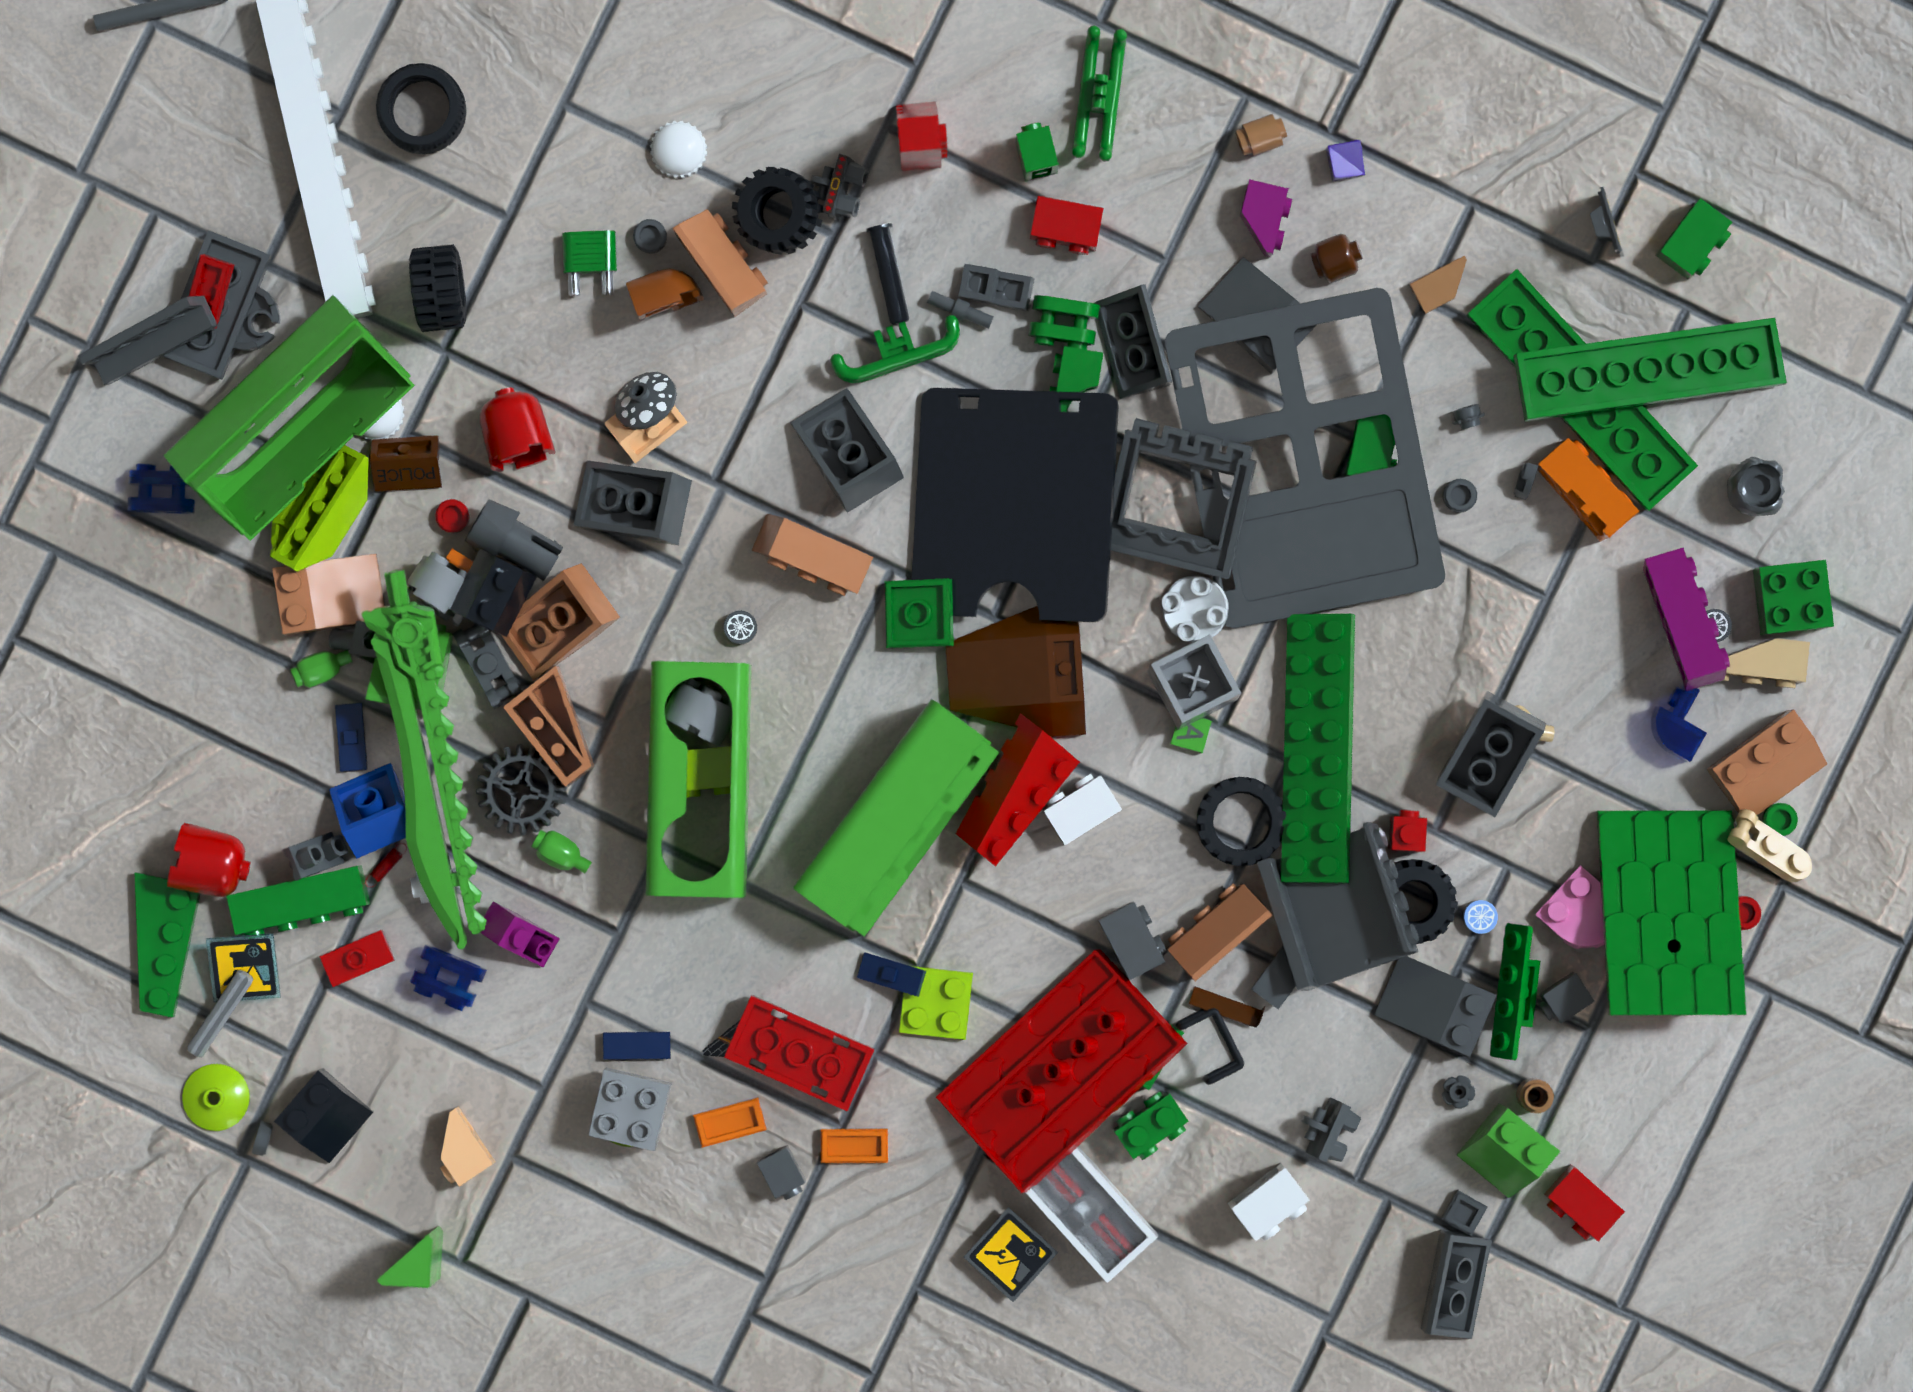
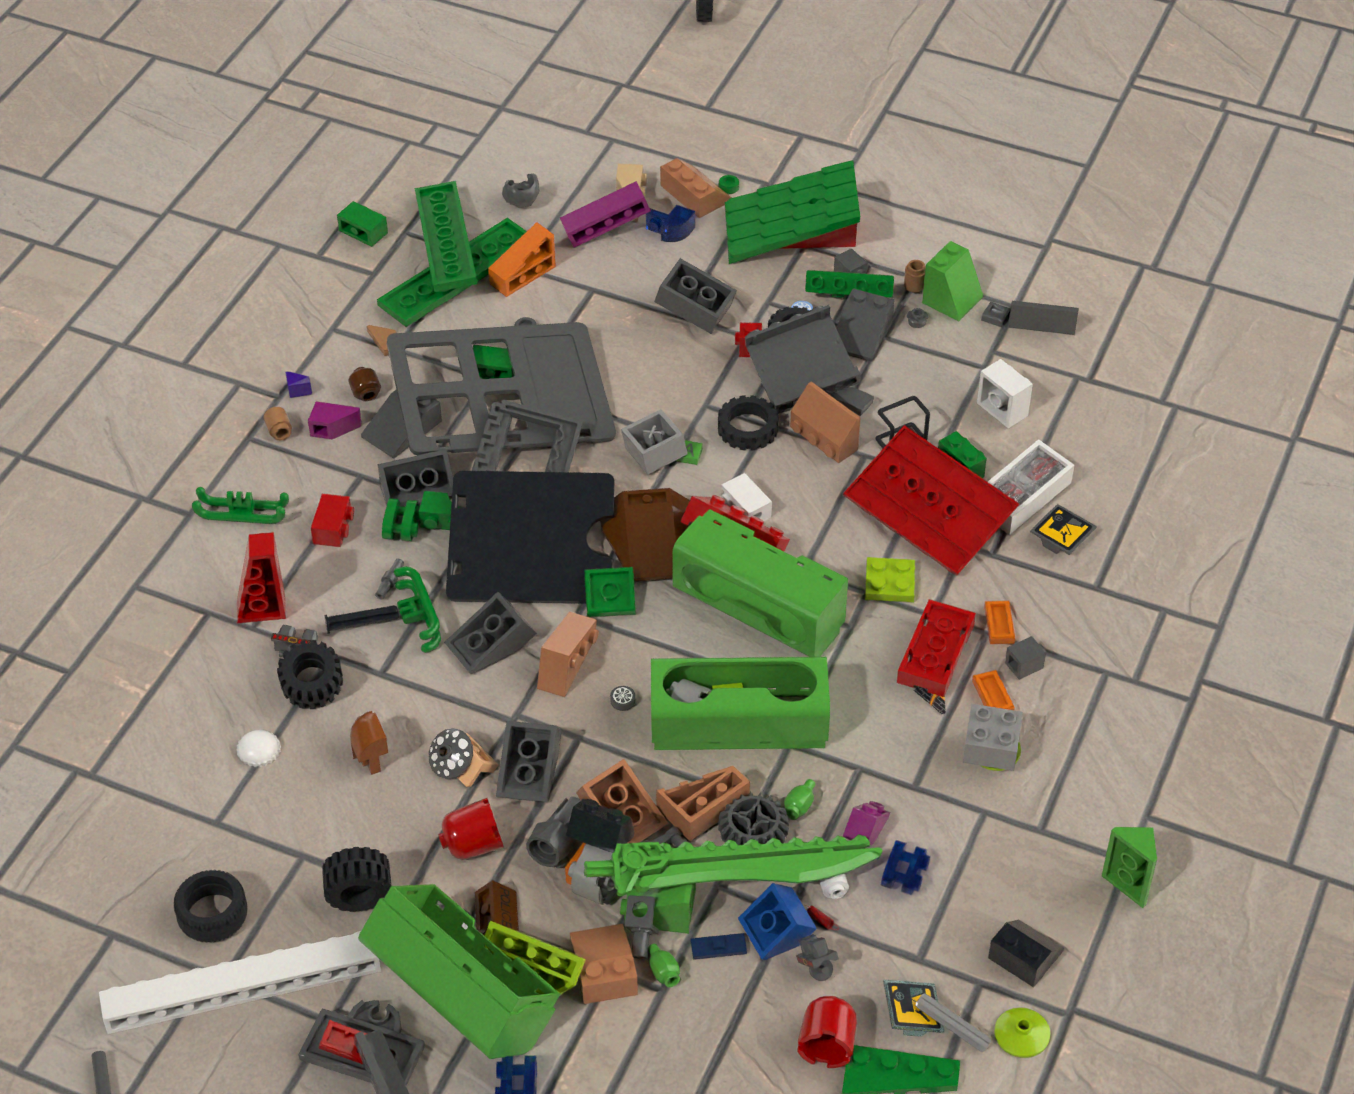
camera: 90 degrees left, 40 degrees down
(262, 1138) = (1051, 991): dark grey tile -> none
(299, 900) = (854, 970): green brick -> none
(357, 958) = (896, 934): red plate -> none
(452, 516) = (539, 882): red tile -> none
(463, 1150) = (1039, 853): light nougat slope -> none
(589, 253) = (334, 797): green piece -> none
(636, 1045) = (943, 750): dark blue piece -> none
(650, 236) = (323, 762): dark grey tile -> none
(721, 261) = (335, 718): nougat slope -> none
(891, 974) = (872, 600): dark blue piece -> none
(996, 287) = (375, 559): dark grey slope -> none
(1036, 152) = (280, 521): green brick -> none
(1132, 940) = (834, 473): dark grey brick -> none
(1195, 608) = (603, 448): white dish -> none
(1227, 1007) = (875, 429): reddish brown piece -> none
(1318, 748) = (694, 380): green plate -> none
(1326, 1128) = (951, 373): dark grey hips -> none
(1468, 416) = (473, 321): dark grey plate -> none
(1525, 480) = (515, 294): dark grey tile -> none
(1576, 911) = (792, 263): bright pink slope -> none
(1583, 1203) = (986, 254): red brick -> none
(1604, 223) = (349, 253): dark grey piece -> none
(1769, 848) = (746, 182): tan plate -> none
(1793, 597) = (590, 176): green brick -> none

